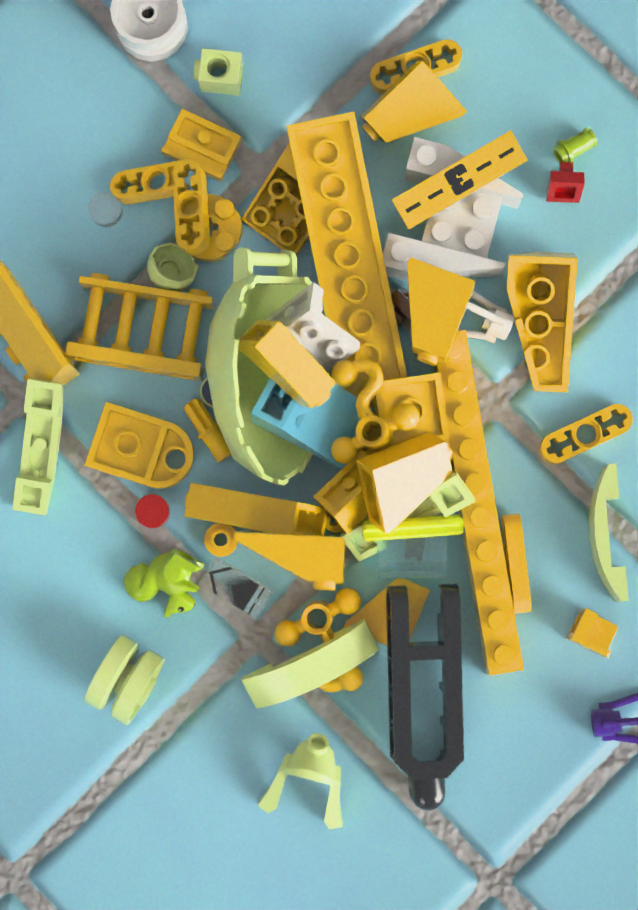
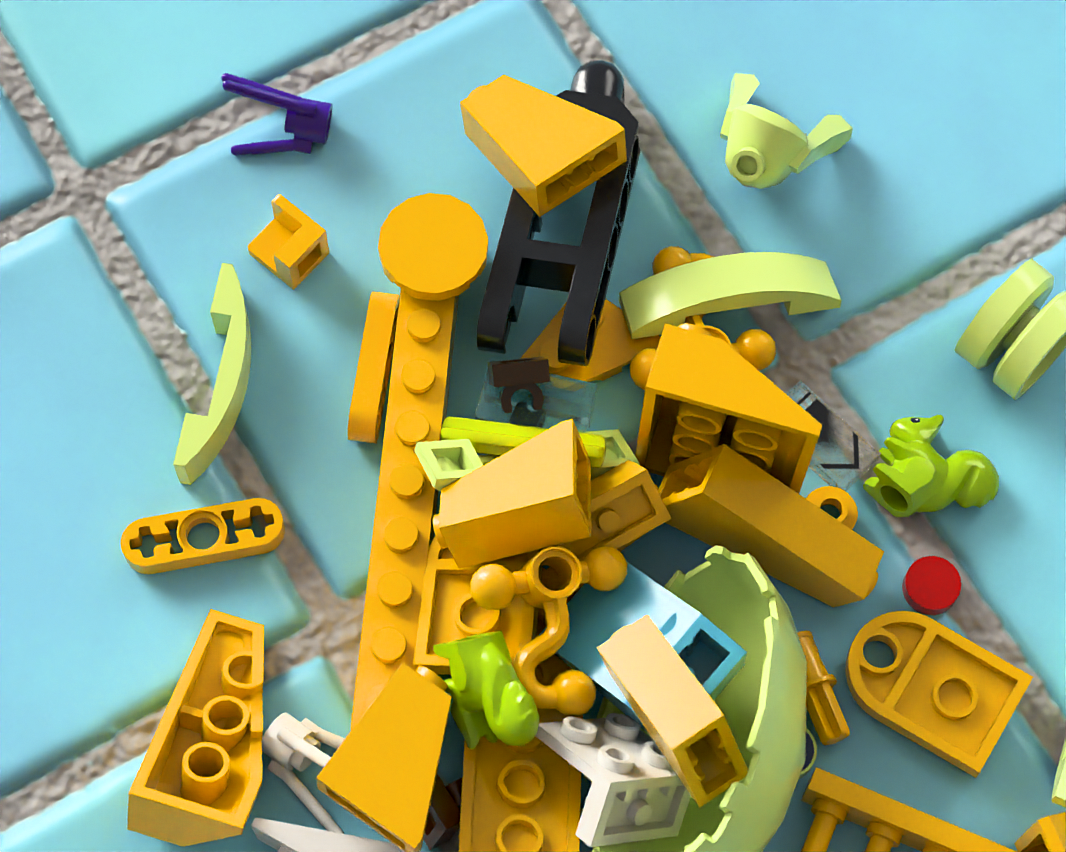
camera: 175 degrees left, 15 degrees down
(395, 360) = (488, 691): none -> lime animal
(426, 564) = (518, 375): none -> dark brown tile
(453, 726) = (541, 141): none -> yellow slope
(500, 635) = (433, 246): none -> yellow tile

